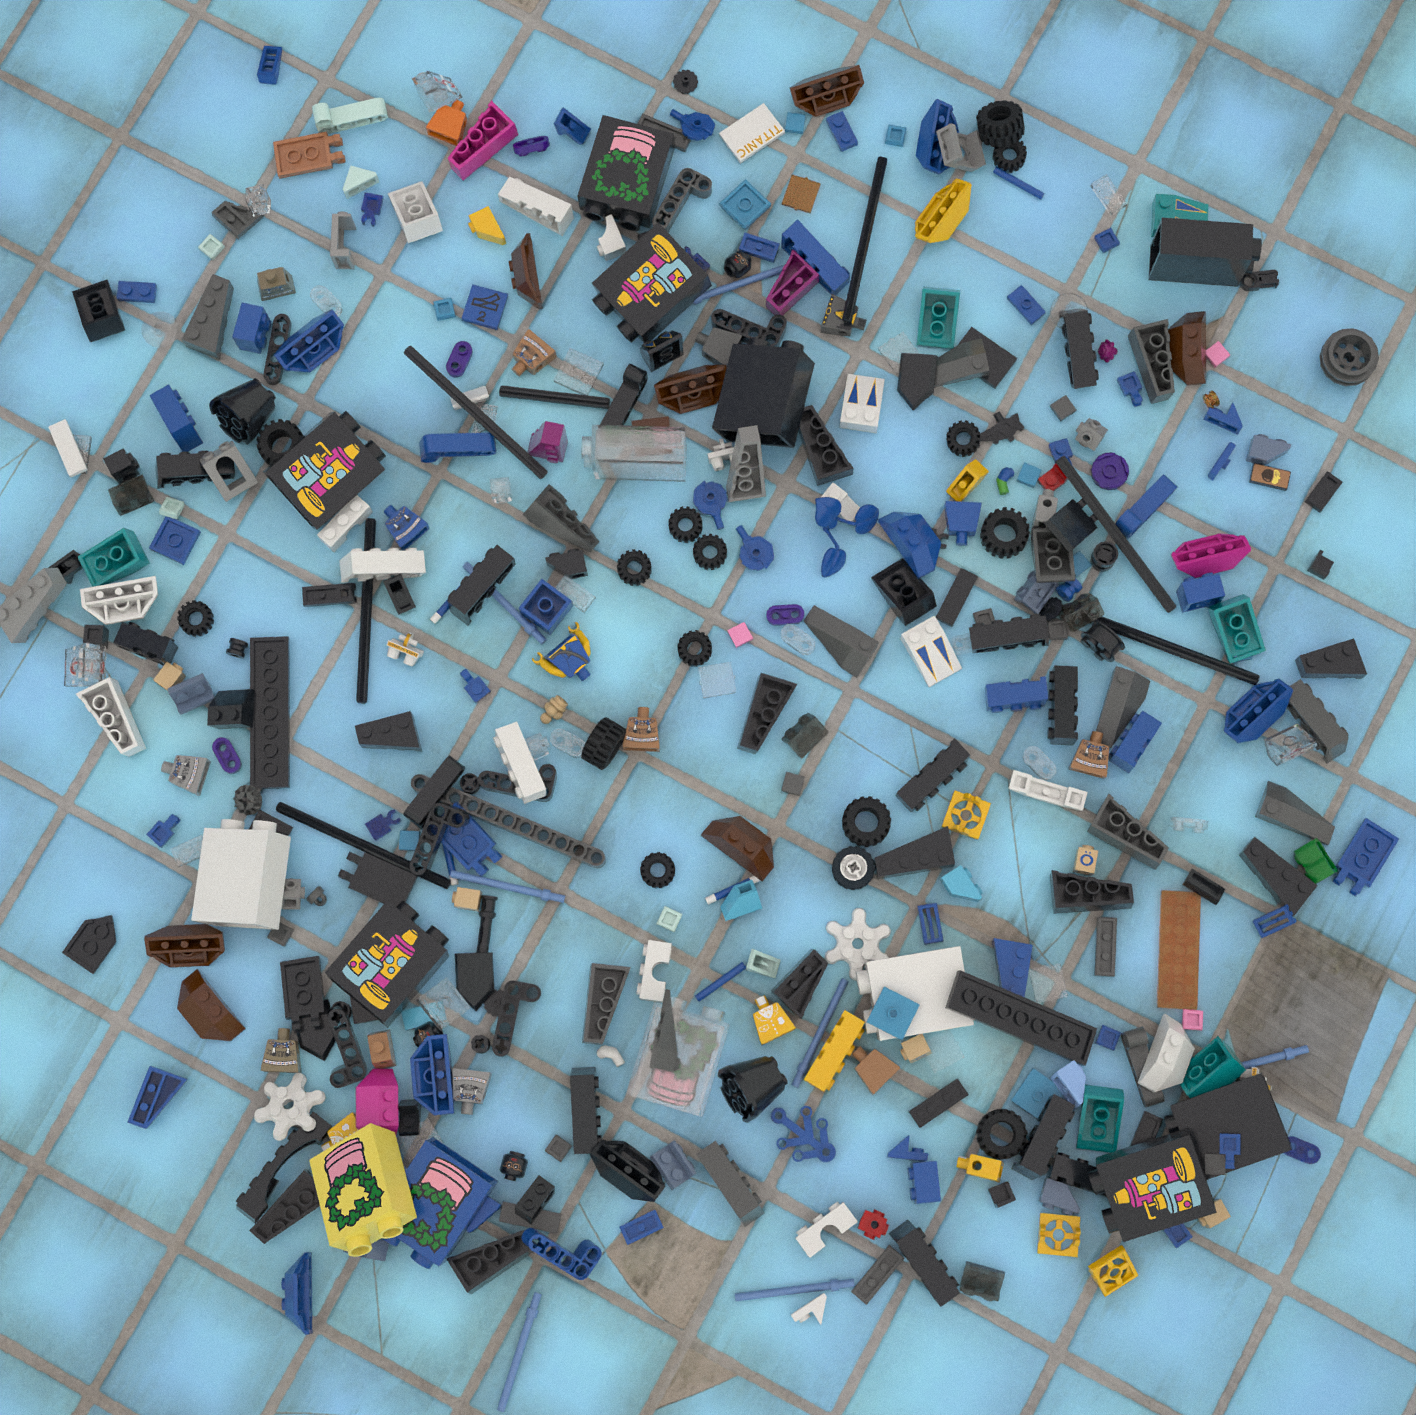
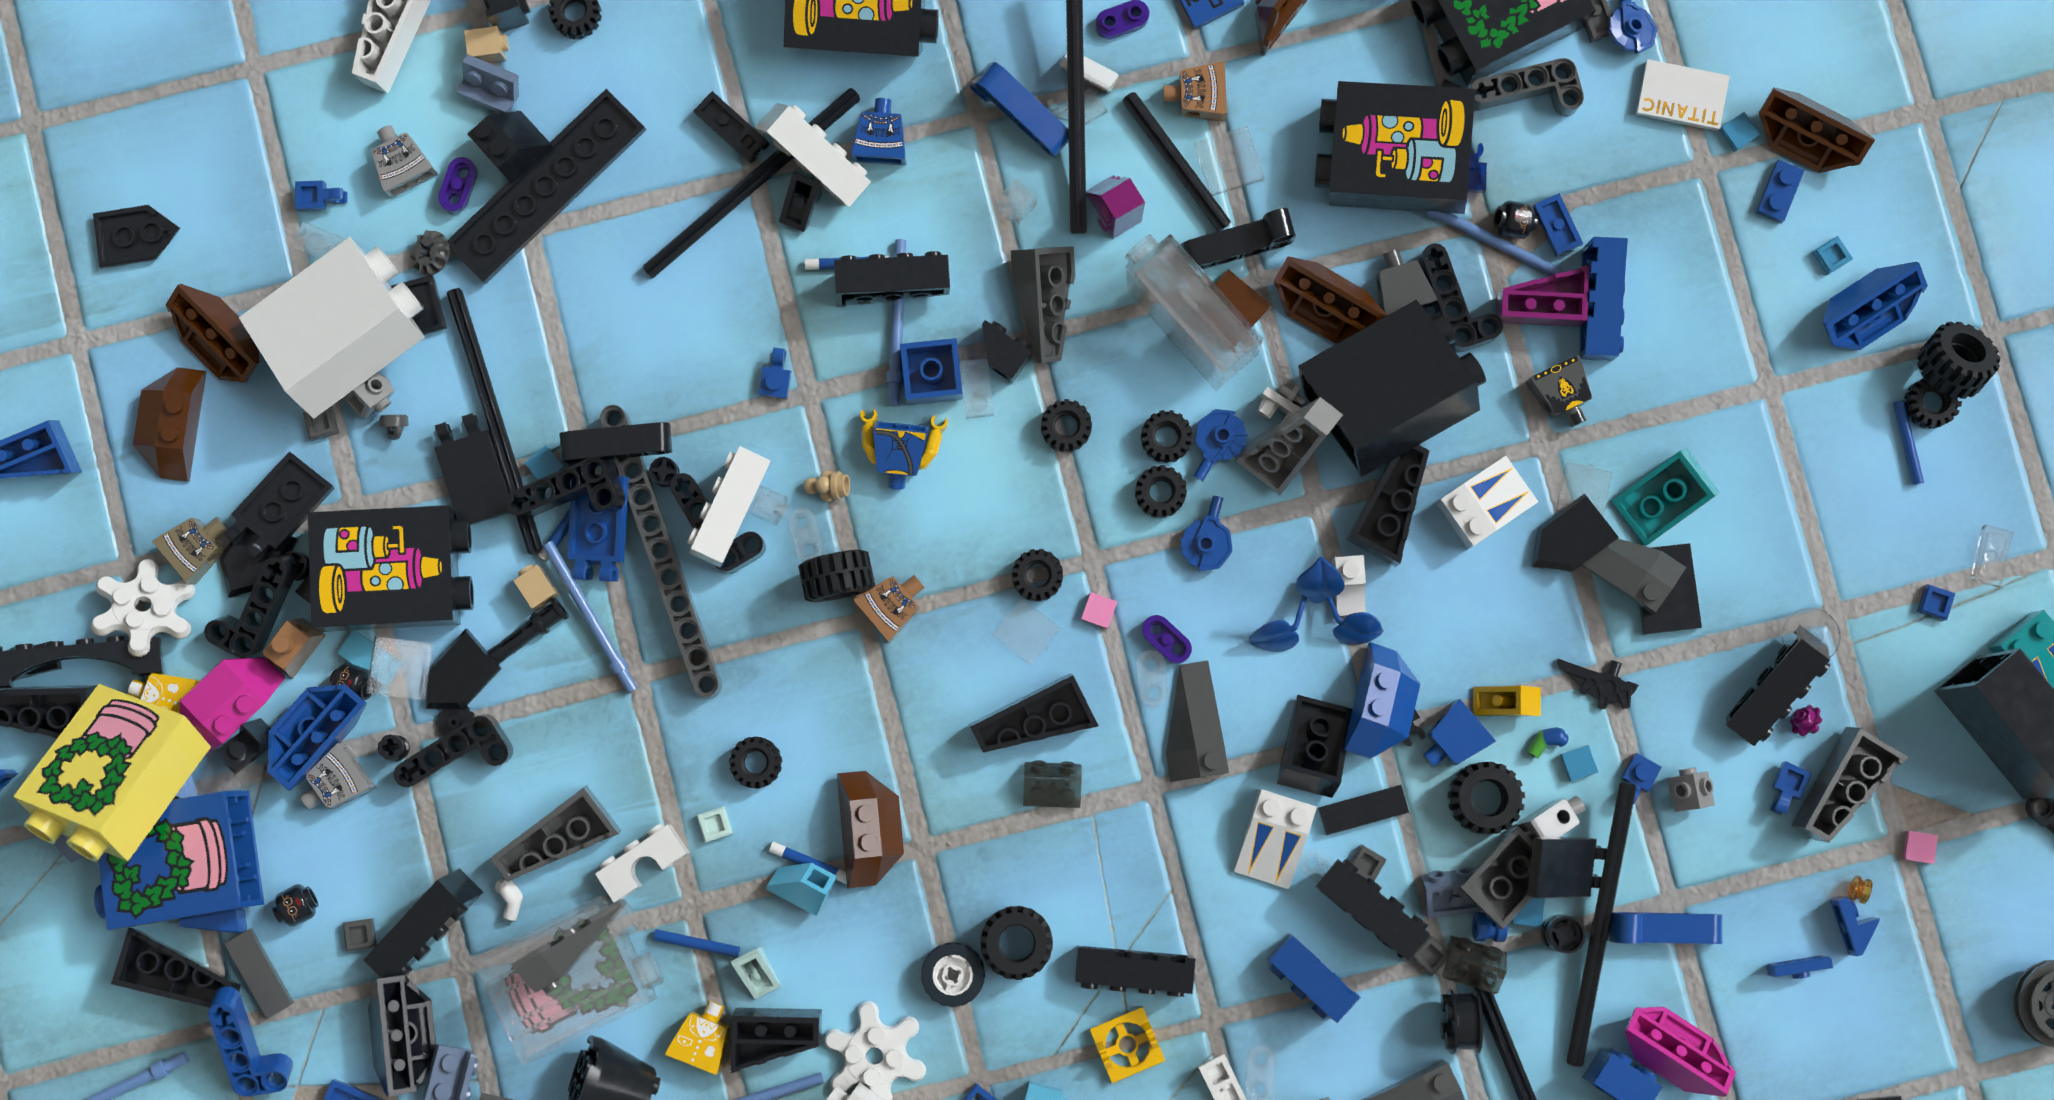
camera: 45 degrees right, 5 degrees up
(237, 648) = (582, 85): black wheel -> none
(335, 532) = (803, 69): white arch -> none
(379, 825) = (532, 418): clear blue plate -> none
(390, 733) = (640, 335): black wedge -> none
(411, 652) = (750, 263): white hips -> none
(534, 1199) = (277, 963): black brick -> none
(611, 243) = (1409, 58): white arch -> none
(662, 350) = (1338, 228): black slope -> none
(745, 204) = (1592, 164): dark azure plate -> none
(793, 783) = (986, 821): dark grey tile -> none
(801, 194) = (1664, 213): clear orange piece -> none
(864, 239) = (1677, 333): black axle -> none
(918, 856) = (1033, 1036): black wedge -> none
(944, 212) = (1793, 391): yellow wedge -> none
(951, 152) = (1879, 325): light grey panel -> none
(963, 449) = (1557, 635): black tyre -> none
(1026, 305) = (1773, 581): blue plate -> none
(1051, 608) = (1447, 929): black piece -> none
(1053, 478) = (1598, 794): red bracket -> none
(1063, 408) = (1692, 731): dark grey tile -> none
(1063, 705) = (1350, 1041): black wedge -> none
(1109, 471) = (1669, 849): dark purple tile -> none
(1189, 348) = (1898, 810): reddish brown wedge -> none
(1265, 450) = (1858, 1003): sand blue slope -> none
(1270, 476) = (1833, 1036): tile -> none

